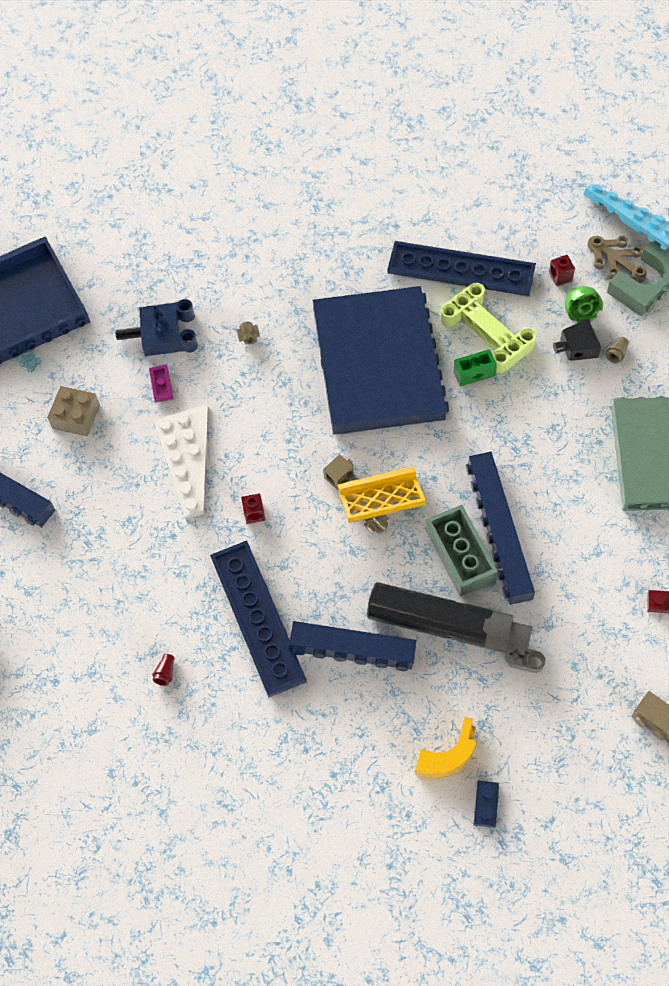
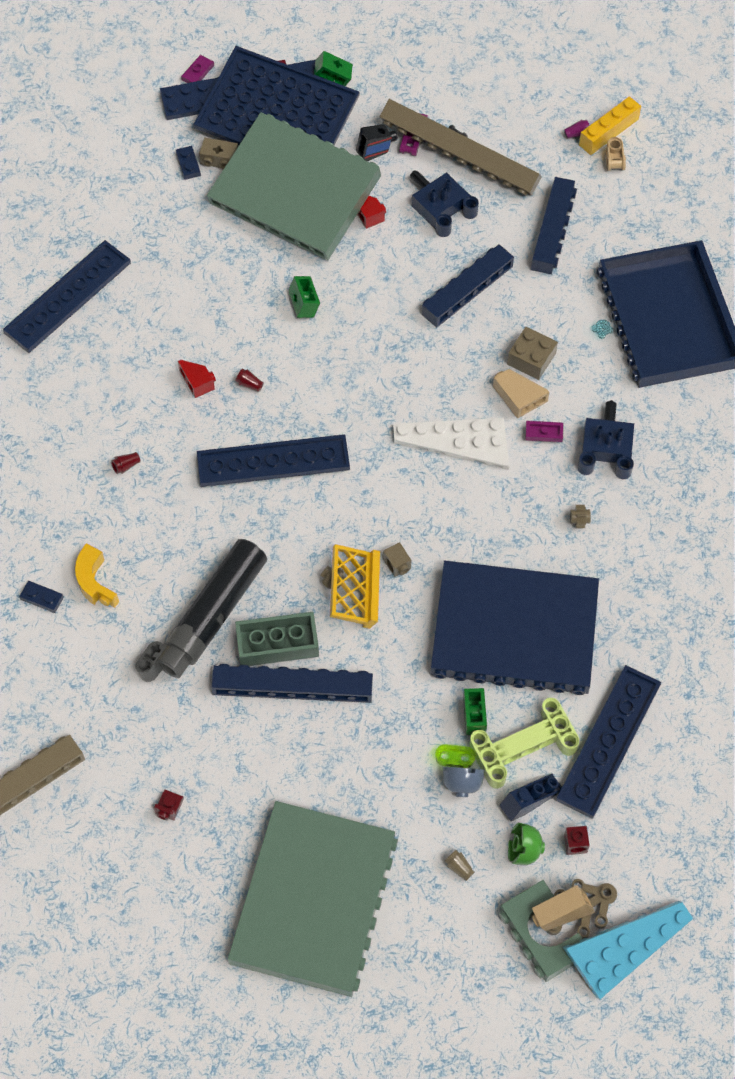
camera: 100 degrees right, 0 degrees up
(46, 641) = (304, 296): none -> green brick
(92, 915) = (66, 296): none -> dark blue plate
(122, 413) = (519, 392): none -> tan slope
(174, 726) = (197, 377): none -> red slope
(253, 508) = (380, 478): dark red brick -> none
(301, 769) = (125, 462): none -> dark red cone
(352, 645) = (215, 524): dark blue brick -> none
(520, 378) = (455, 754): none -> clear neon green plate
(539, 313) = (529, 797): none -> dark blue slope
(540, 362) = (463, 780): none -> sand blue cylinder
(578, 342) = (480, 827): black torso -> none
(630, 259) = (562, 909): none -> tan slope

